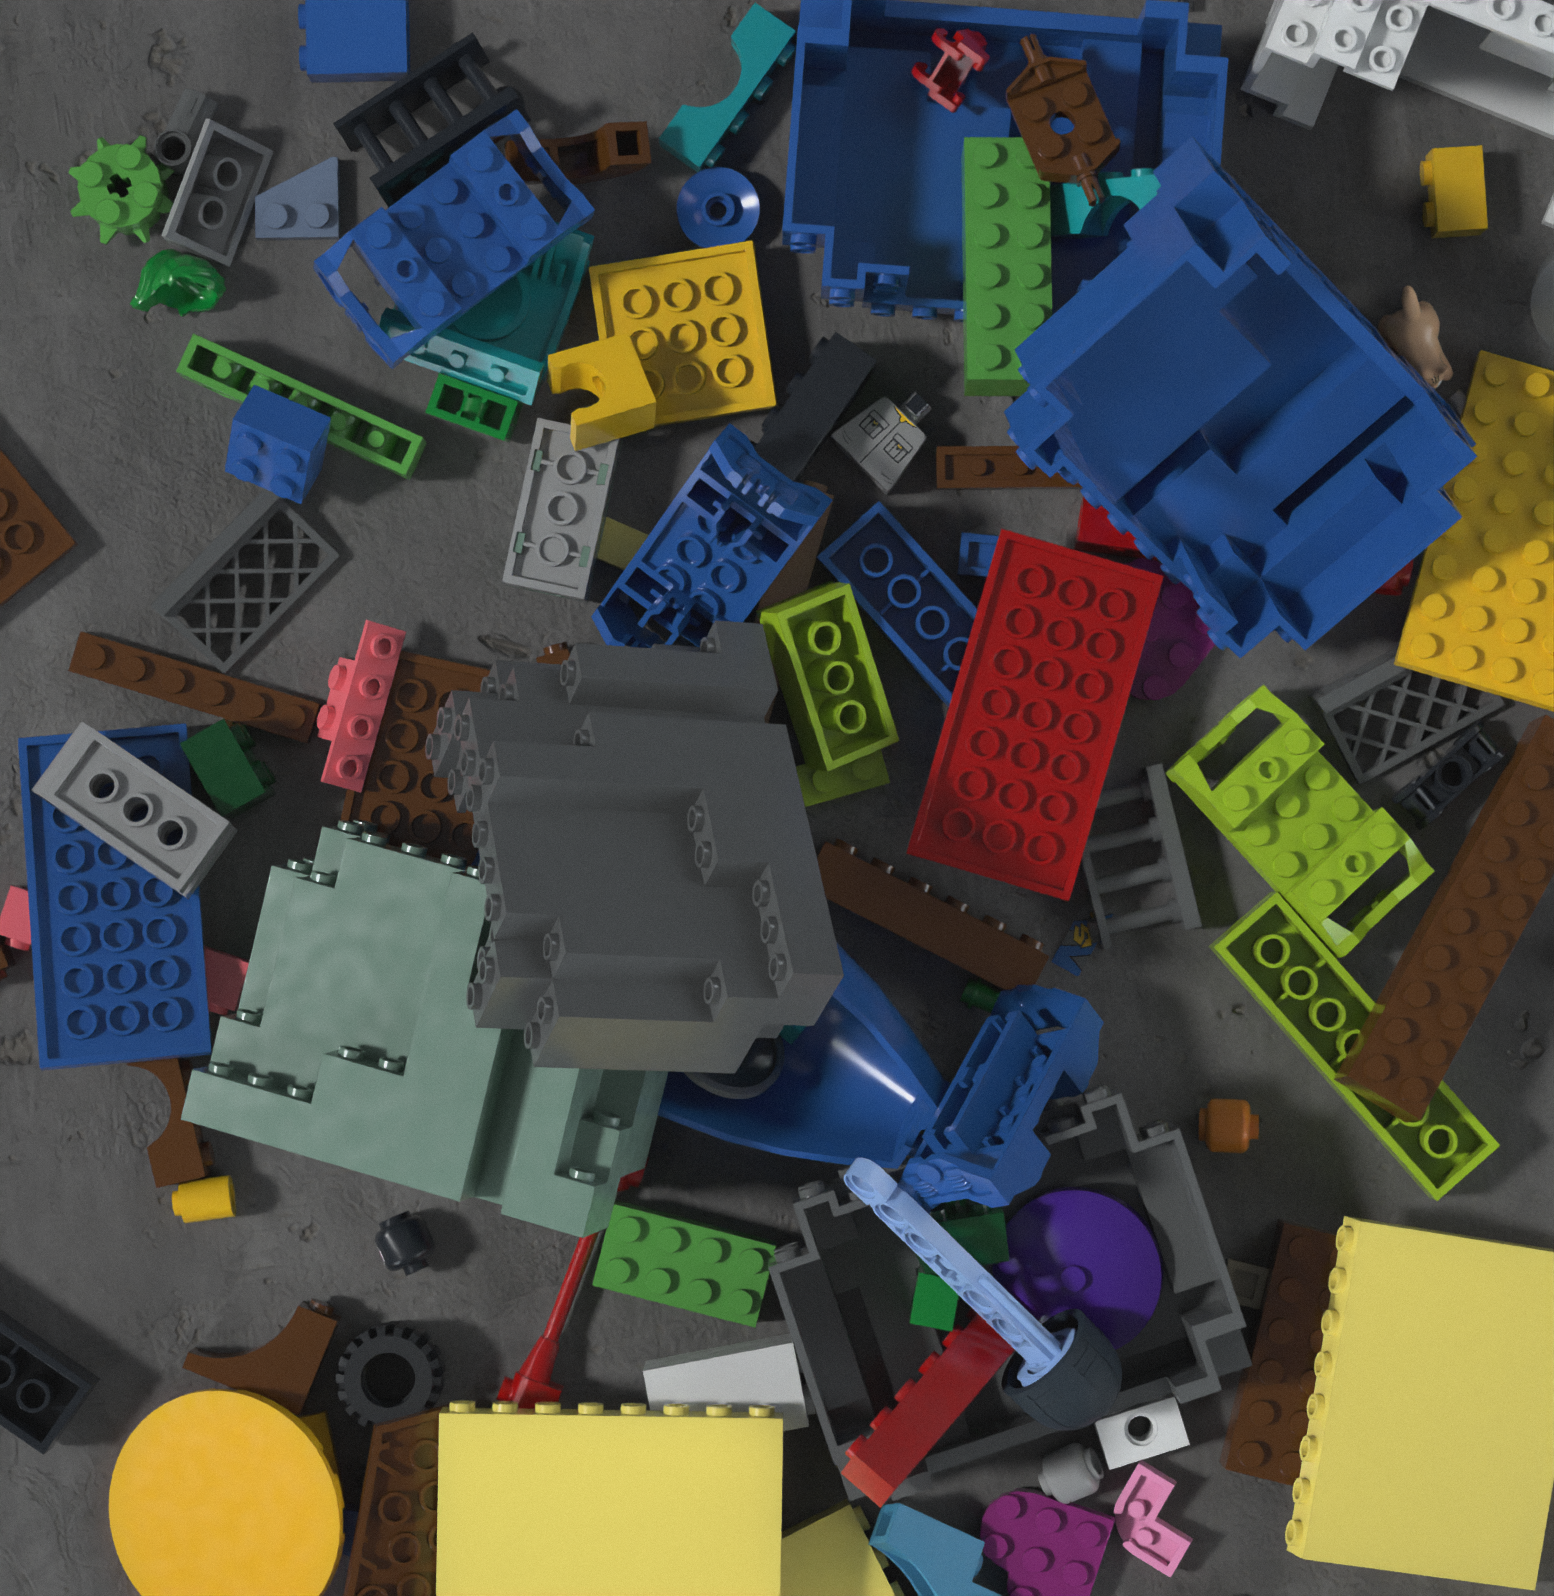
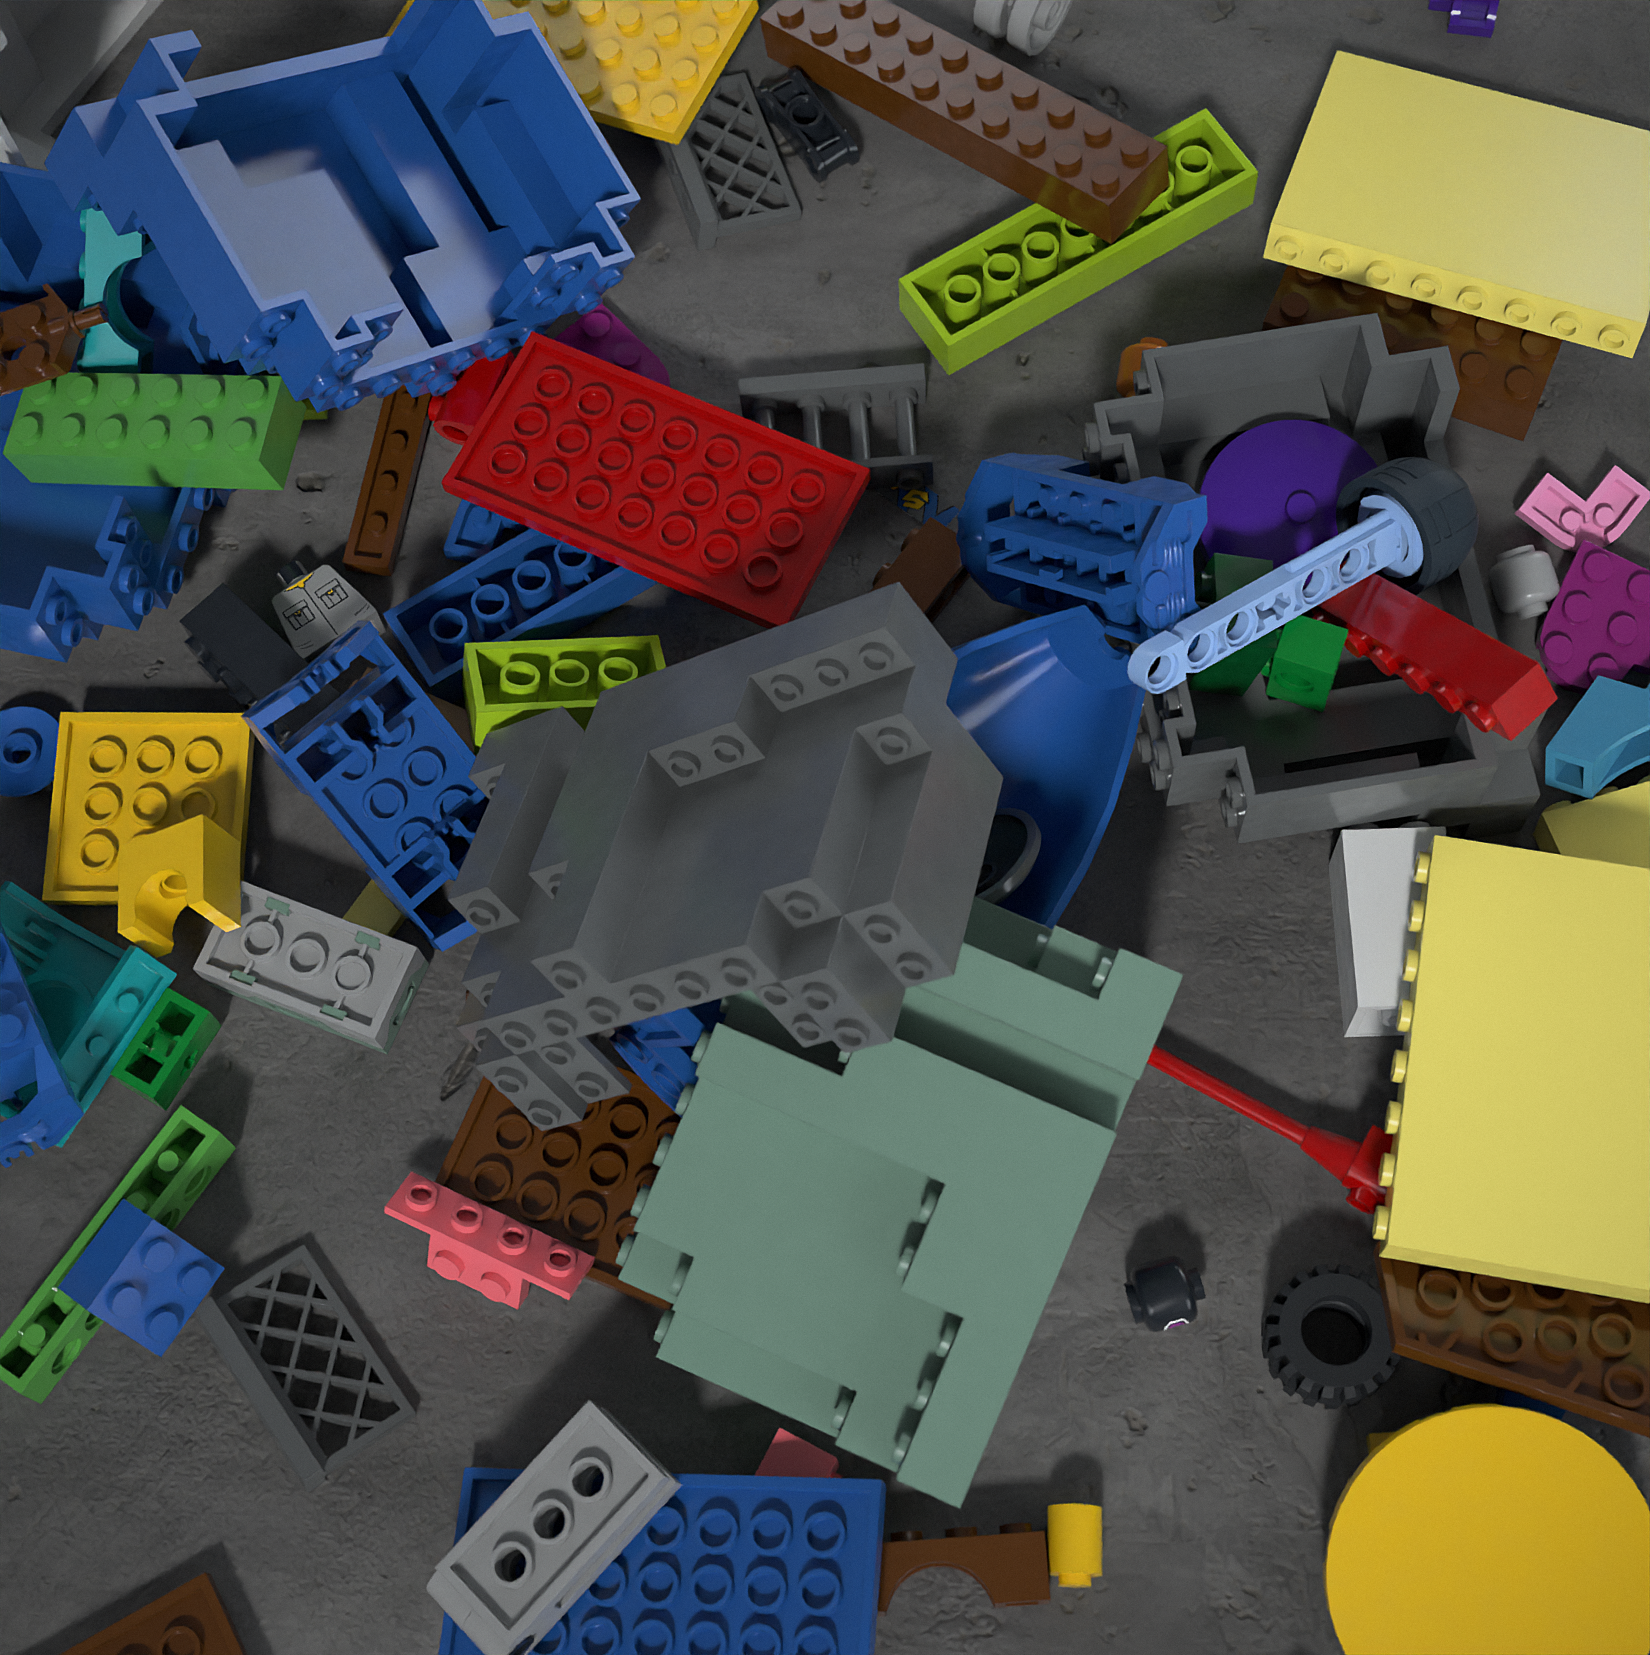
camera: 70 degrees left, 20 degrees down
(194, 687) = (422, 1456): reddish brown plate -> none
(229, 768) = (523, 1412): dark green brick -> none
(281, 1367) = (1302, 1476): reddish brown arch -> none
(684, 1263) = (1233, 962): bright green brick -> none
(979, 995) = (964, 605): green pin -> none
(1164, 1433) = (1491, 487): white brick -> none
(1300, 822) = (824, 252): lime piece -> none
(1454, 191) = (226, 41): yellow brick -> none

